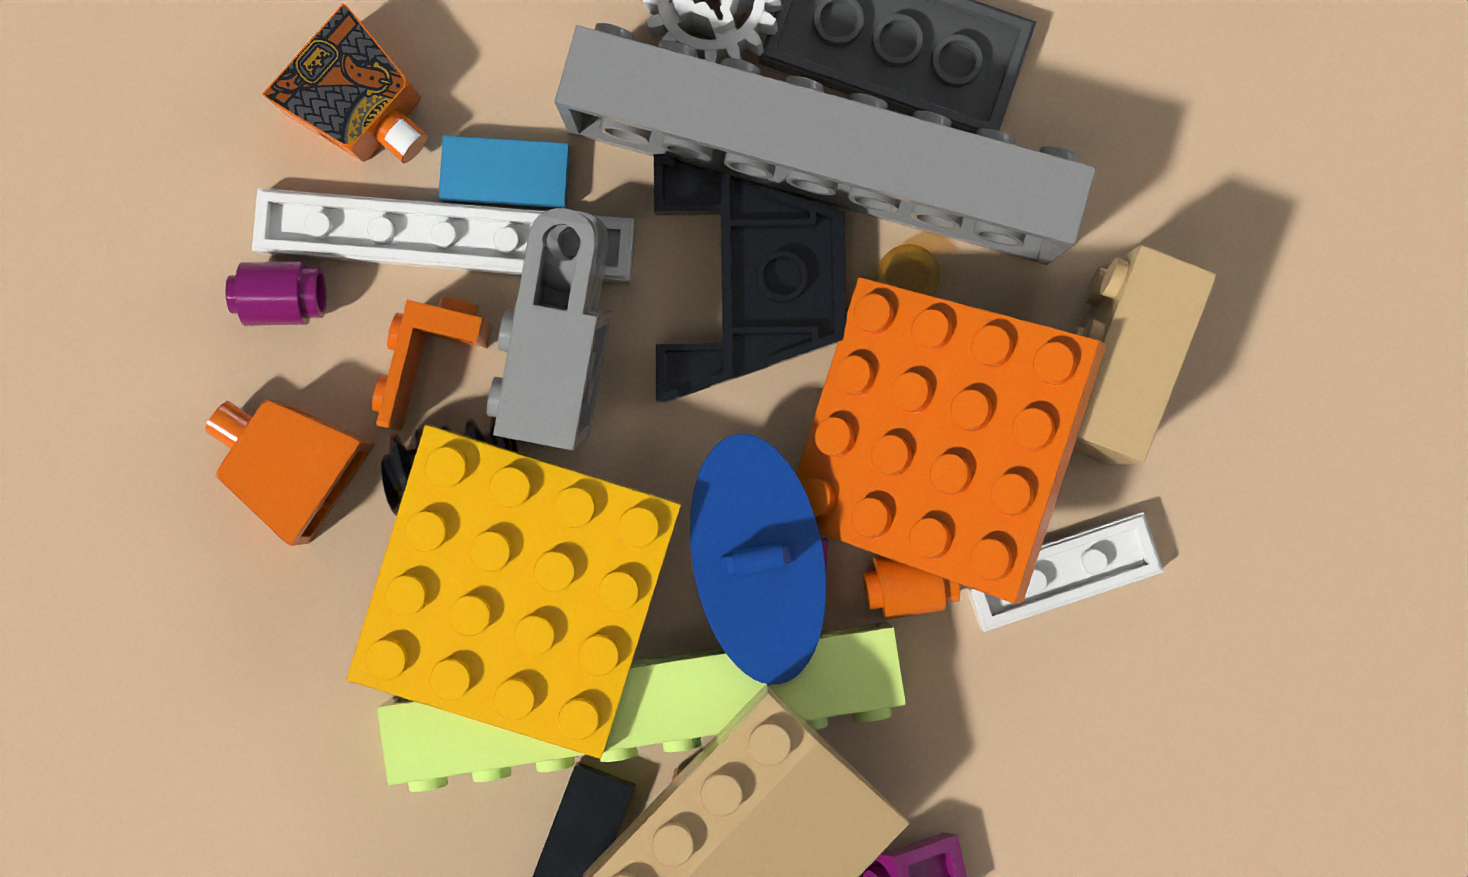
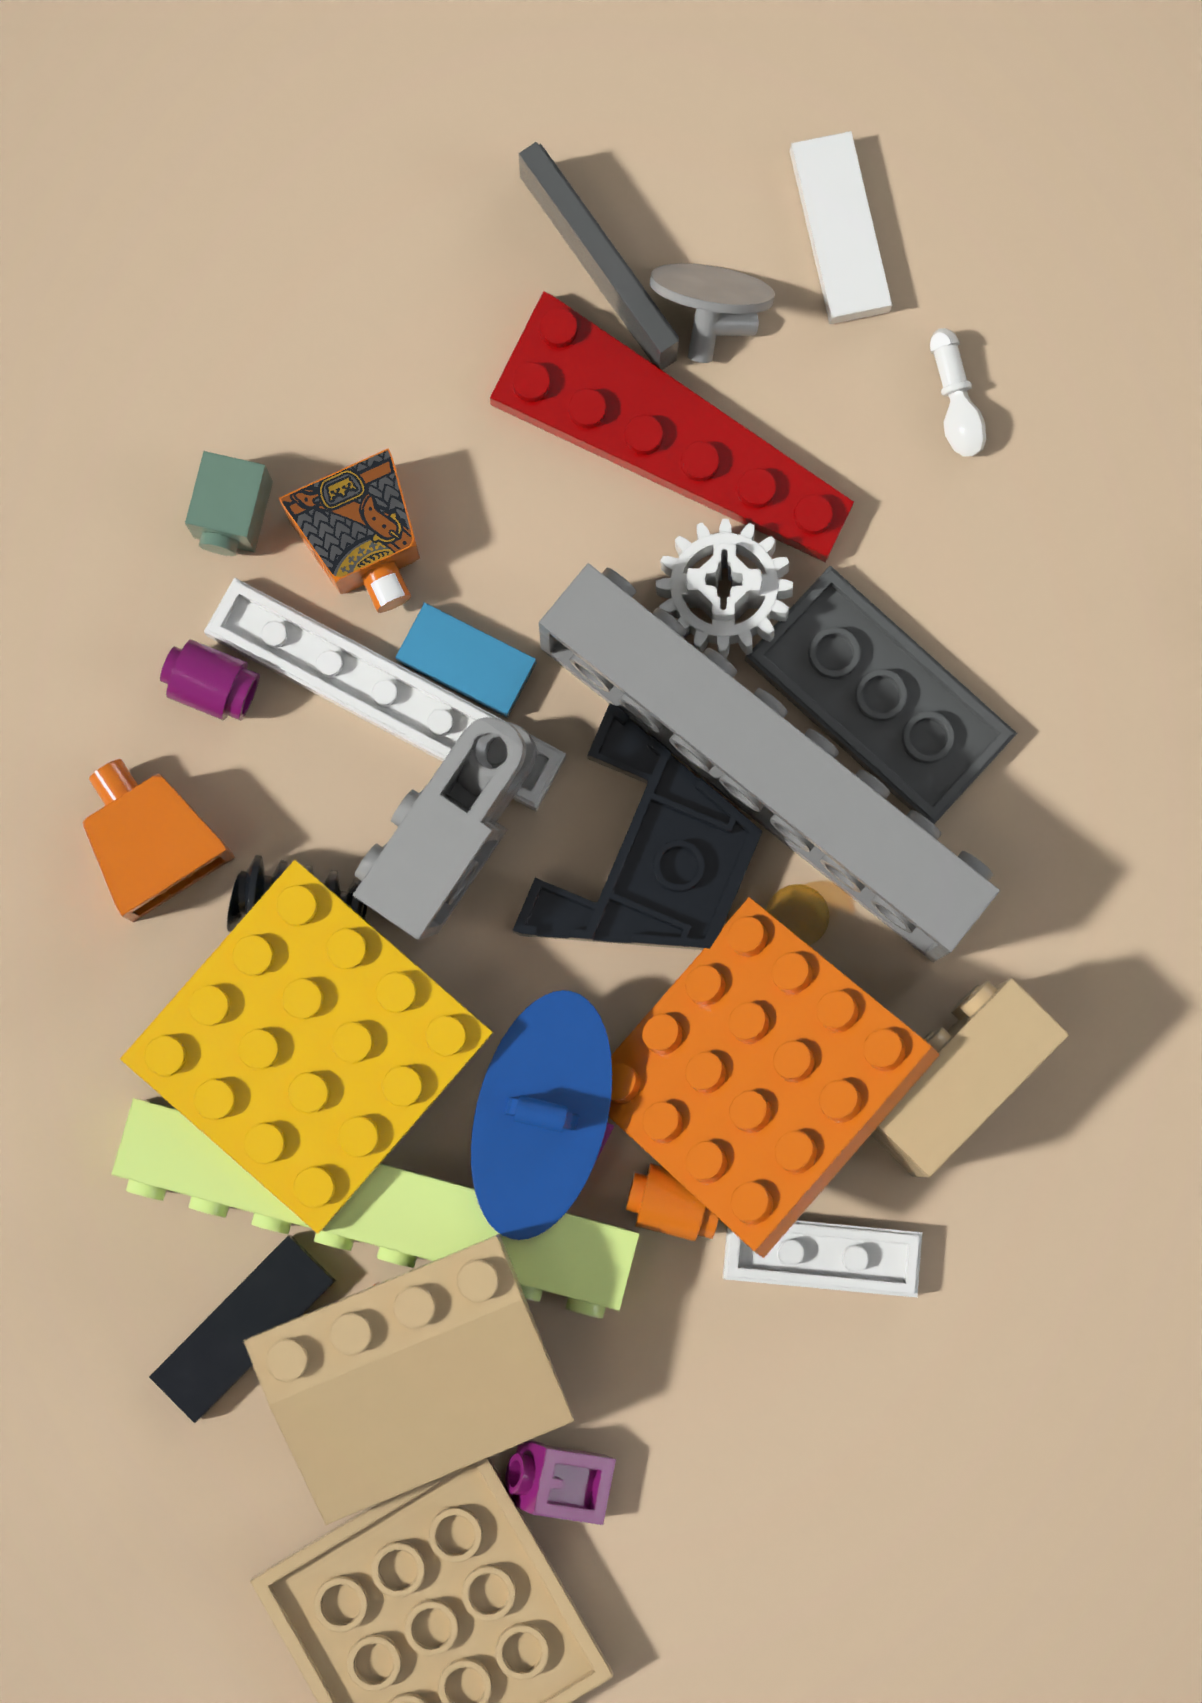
camera: 25 degrees right, 5 degrees down
(220, 121) = (228, 504): none -> sand green brick
(406, 337) = (356, 774): orange bracket -> none

